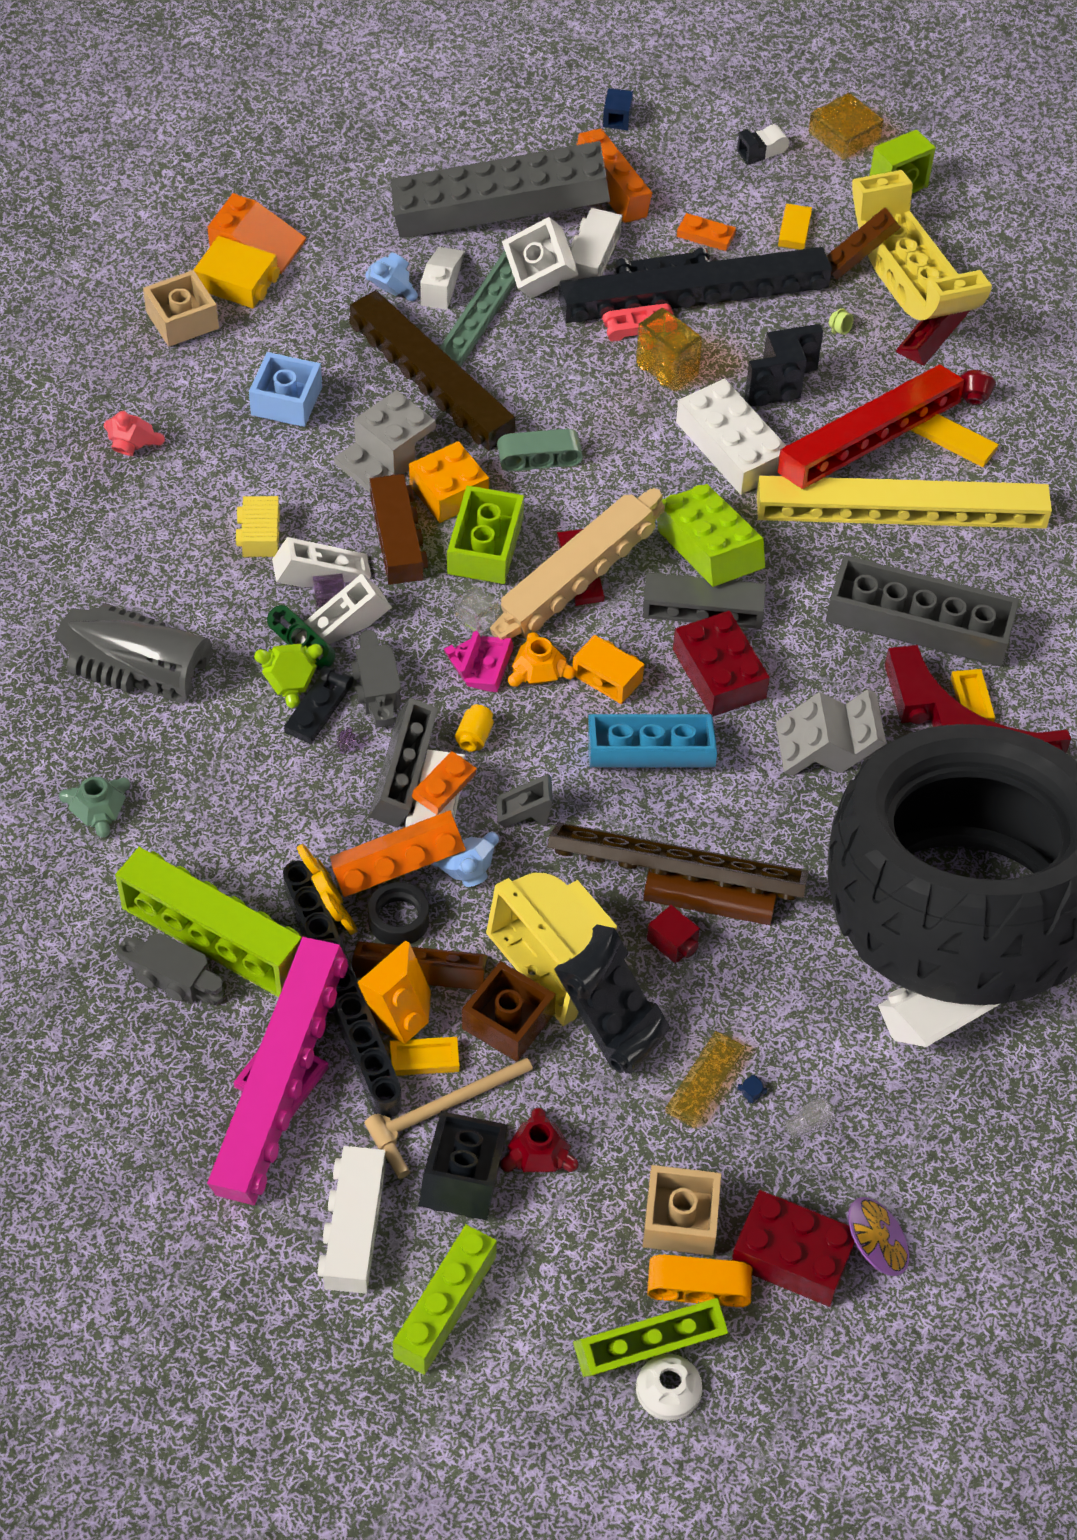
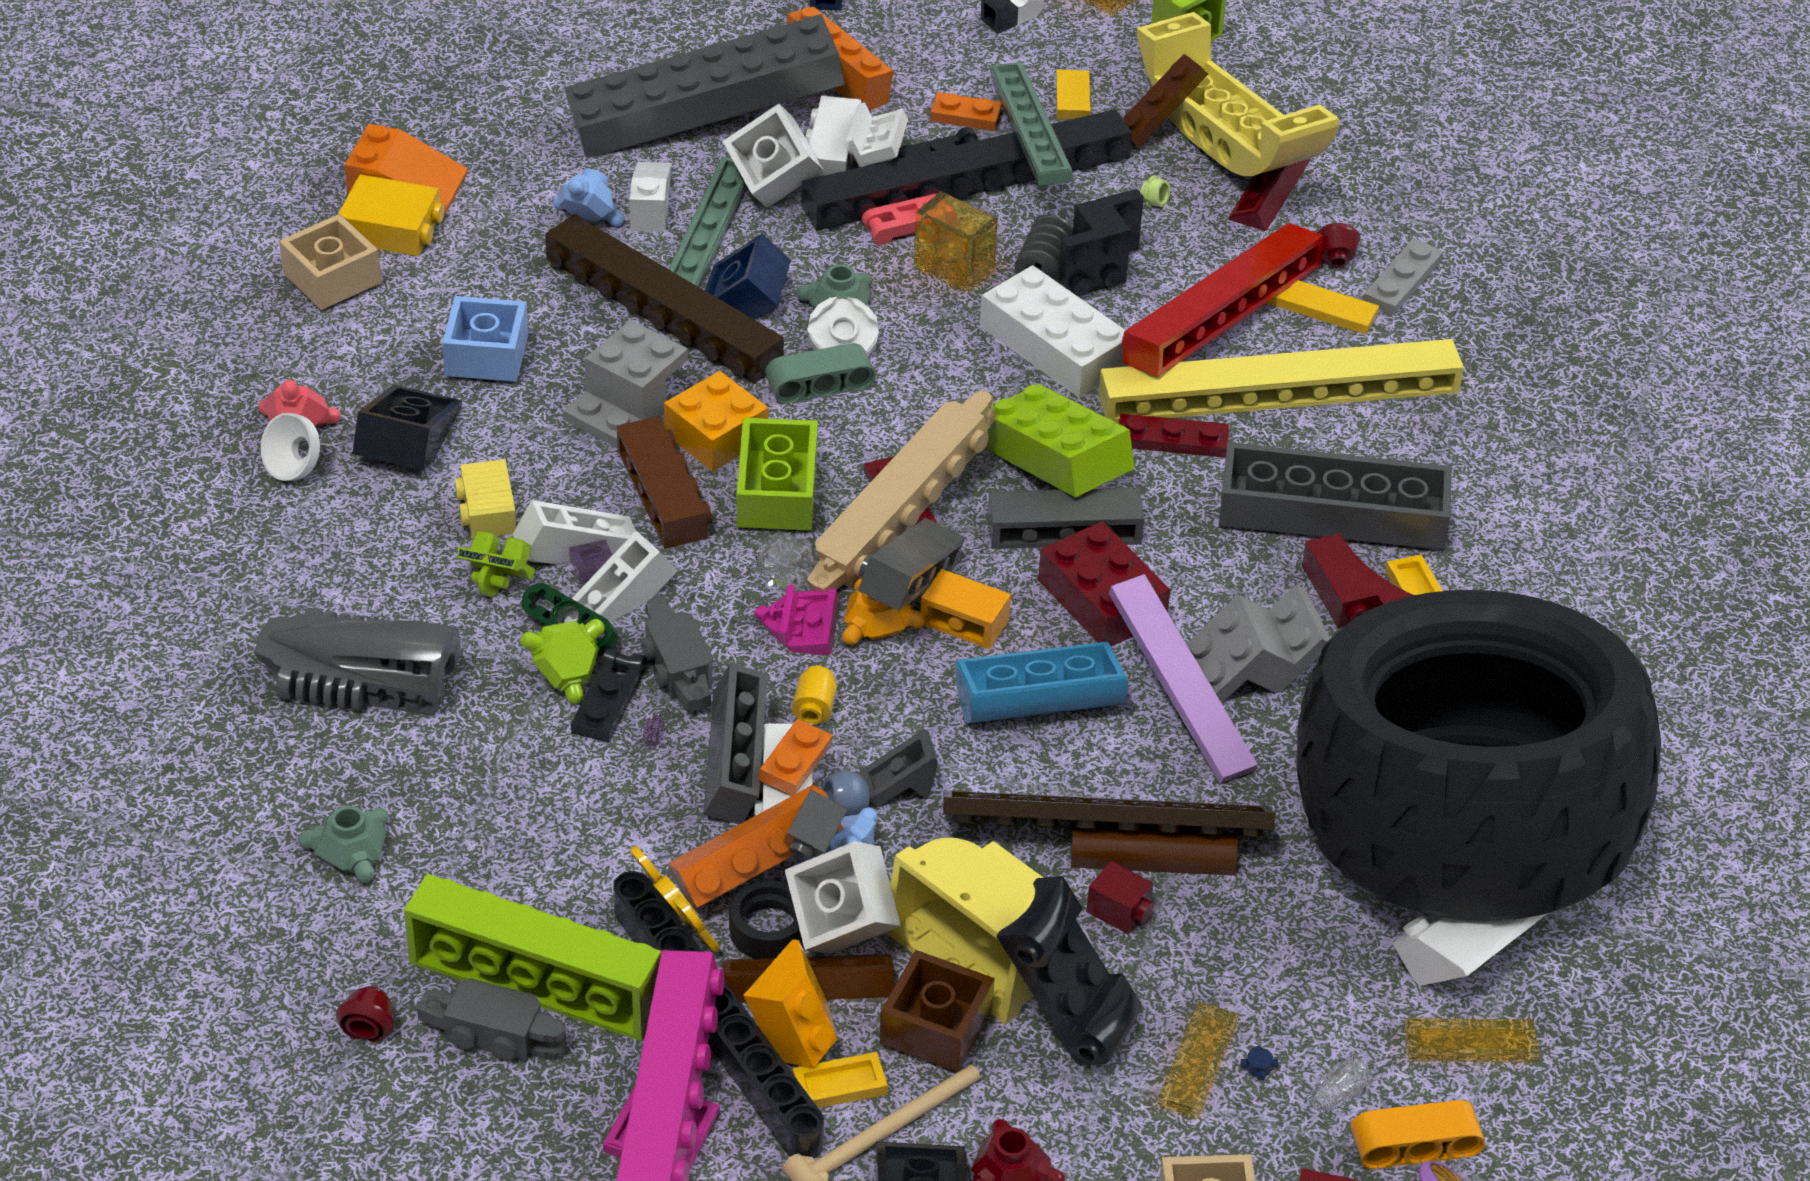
camera: 10 degrees left, 10 degrees down
(78, 949) = (366, 1014): none -> dark red cone
(113, 462) = (281, 445): none -> white piece
(209, 456) = (404, 427): none -> black slope
(249, 592) = (492, 565): none -> lime hips
(439, 850) = (814, 826): none -> dark grey brick
(453, 908) = (842, 897): none -> white brick
(479, 817) = (848, 790): none -> sand blue piece
(502, 361) = (751, 277): none -> dark blue slope
(565, 410) = (842, 323): none -> white tile
(568, 628) = (909, 563): none -> dark grey brick
(570, 382) = (837, 282): none -> sand green rock
(625, 250) = (877, 137): none -> white bracket
(736, 361) = (1044, 245): none -> dark grey piece
(751, 253) = (1031, 124): none -> sand green tile
(763, 755) = (1182, 679): none -> lavender tile
(806, 537) = (1176, 435): none -> dark red plate
(861, 1168) = (1417, 1132): none -> light orange beam
(923, 1094) = (1471, 1040): none -> clear yellow tile
(1024, 420) = (1403, 276): none -> light grey plate

